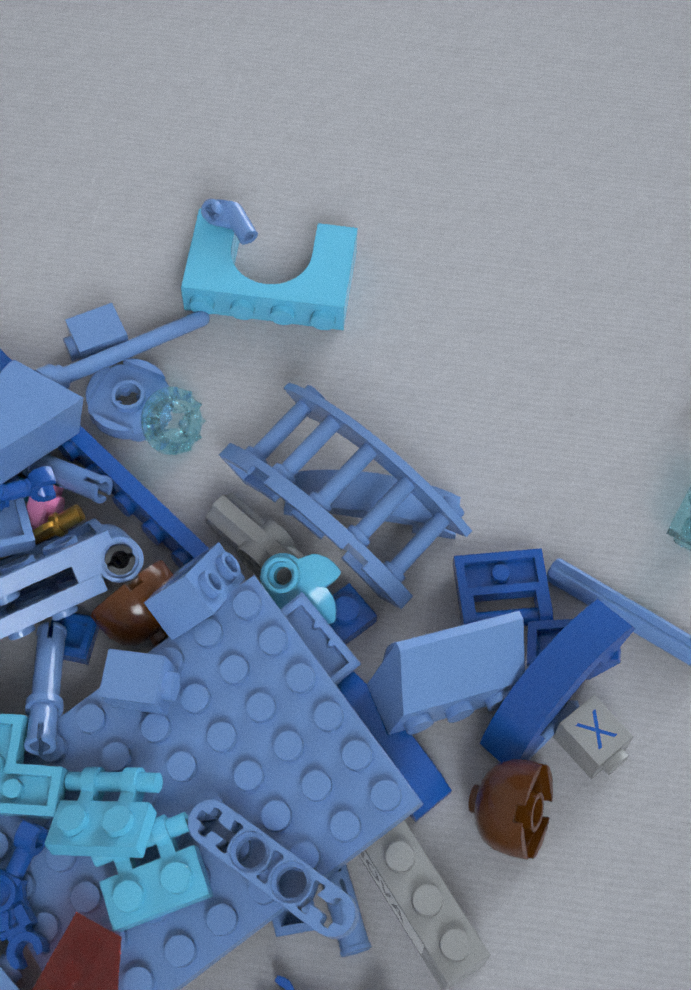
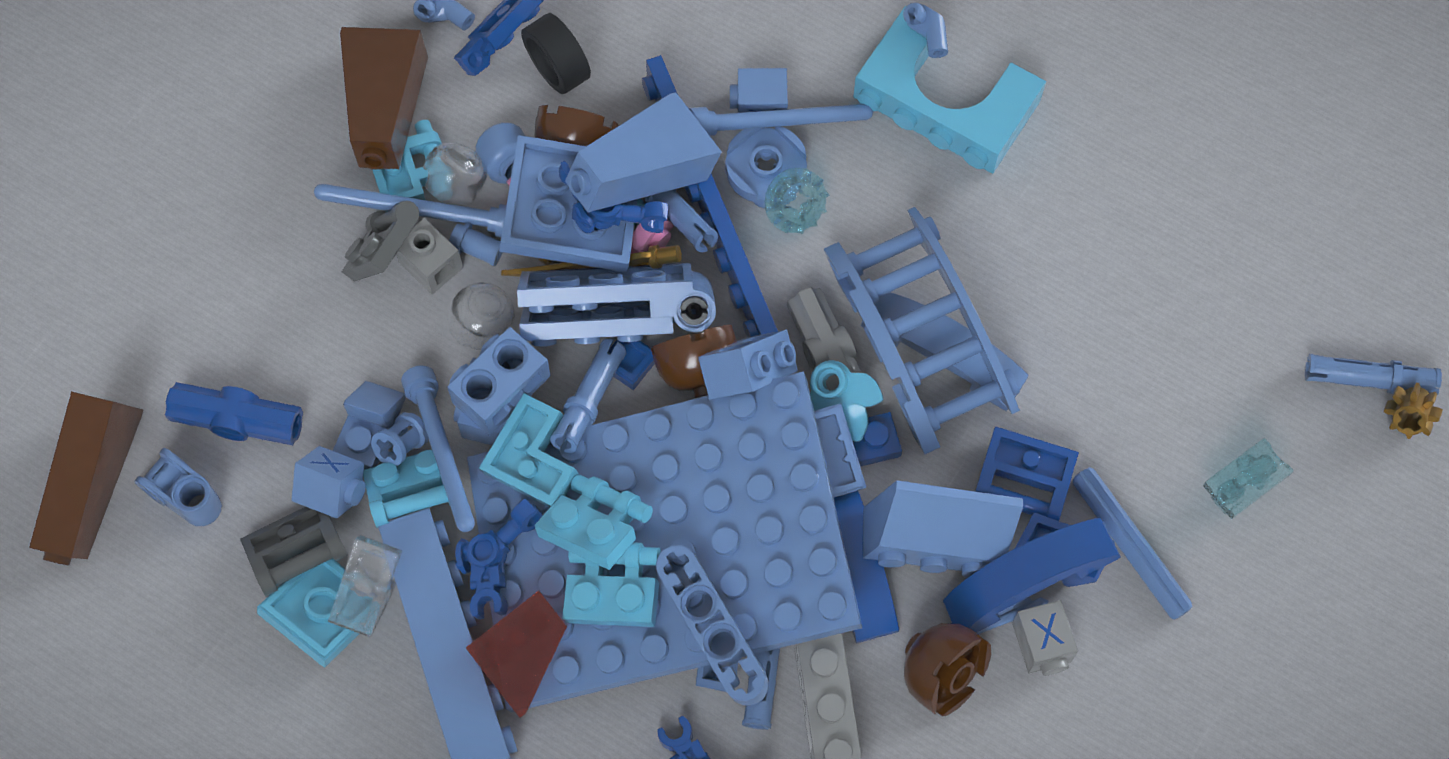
camera: 25 degrees right, 5 degrees up
(139, 681) = (666, 423): medium blue brick -> none

